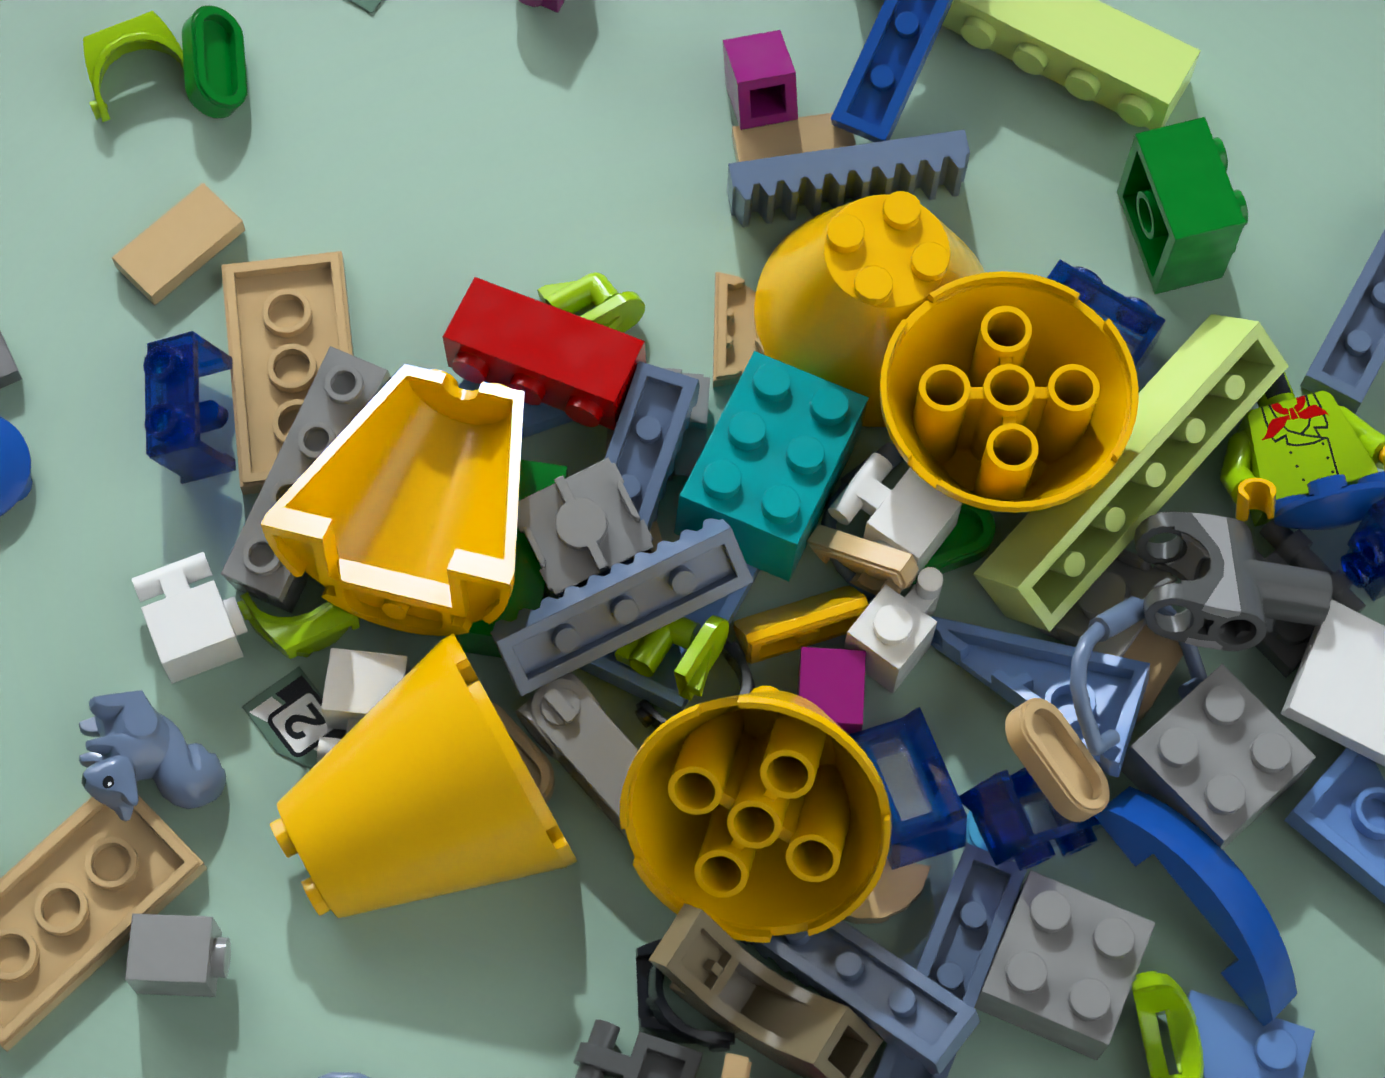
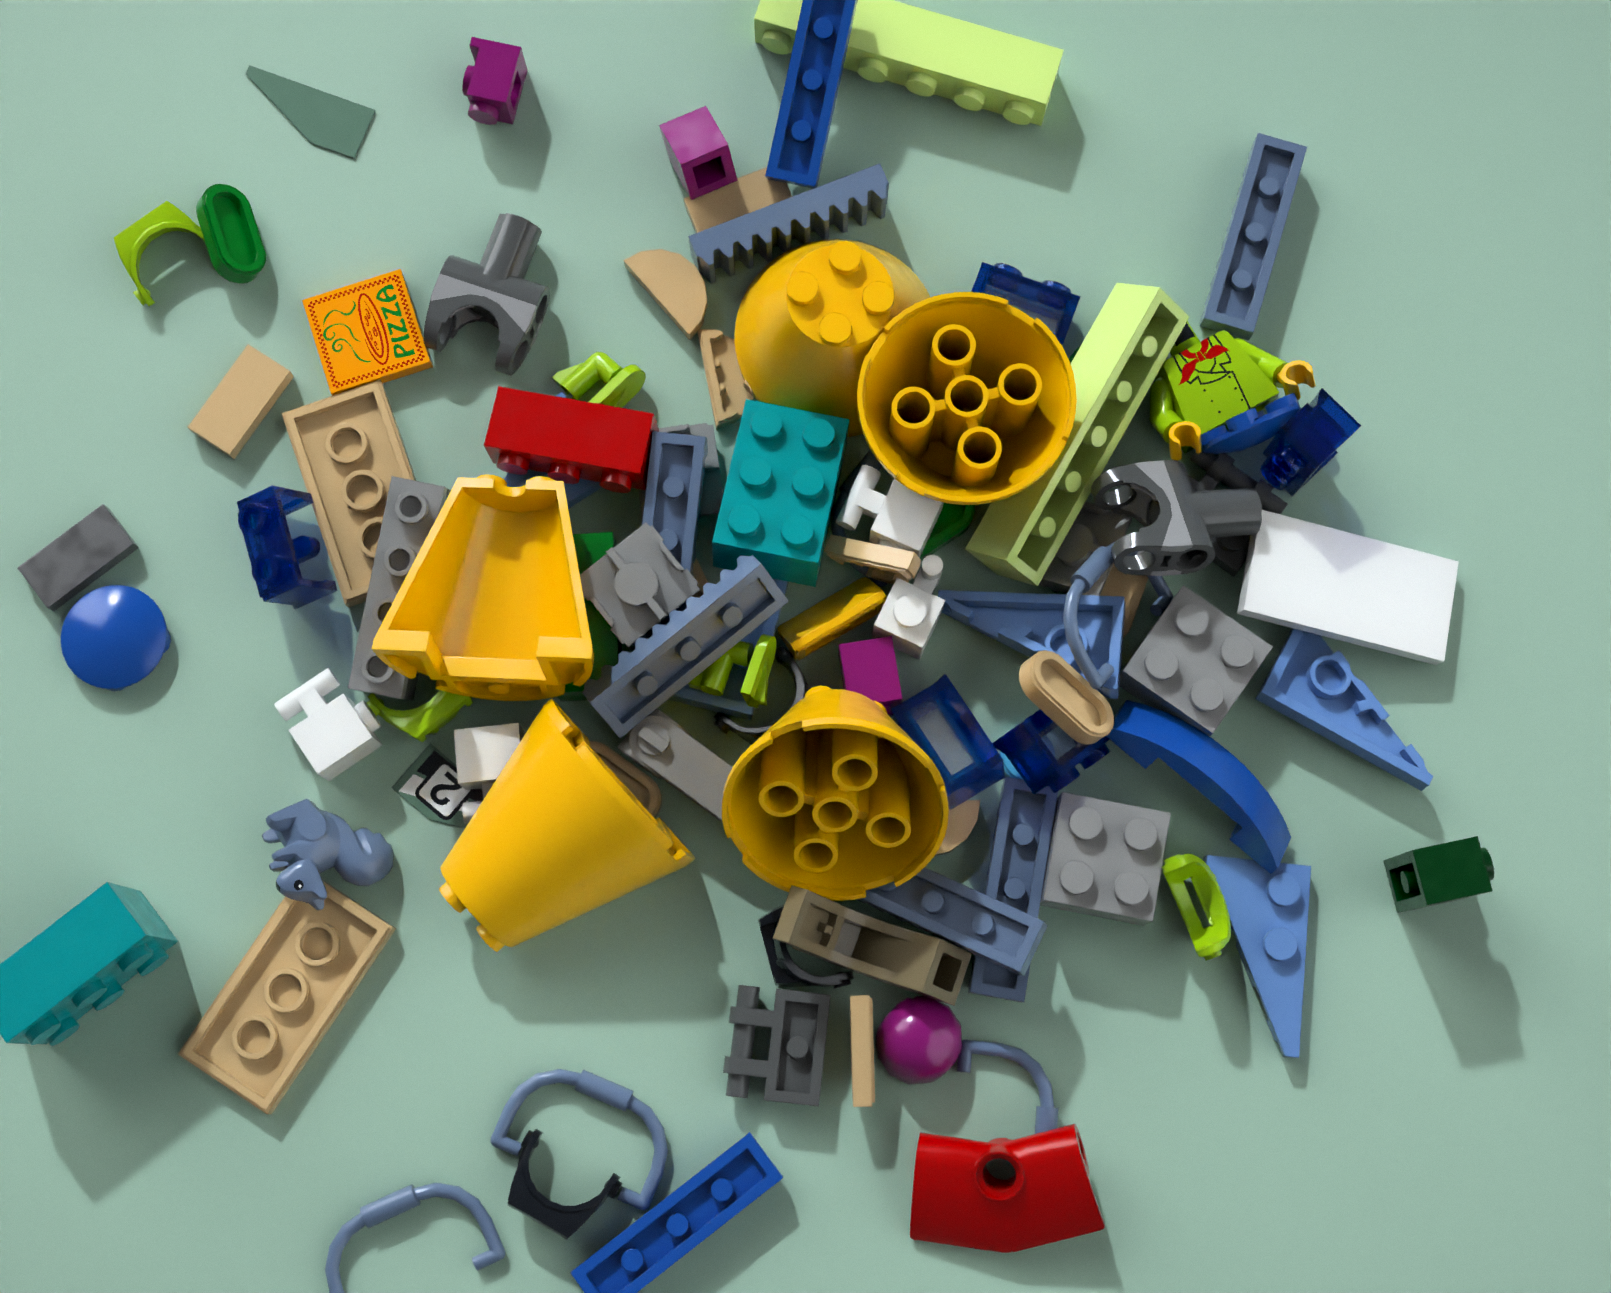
camera: 10 degrees left, 10 degrees up
(176, 955) = (389, 1009): light grey brick -> none
(340, 198) = (367, 332): none -> light orange tile
(491, 185) = (492, 294): none -> dark grey connector
(699, 219) = (673, 285): none -> tan tile
(1181, 204) = (1074, 191): green brick -> none

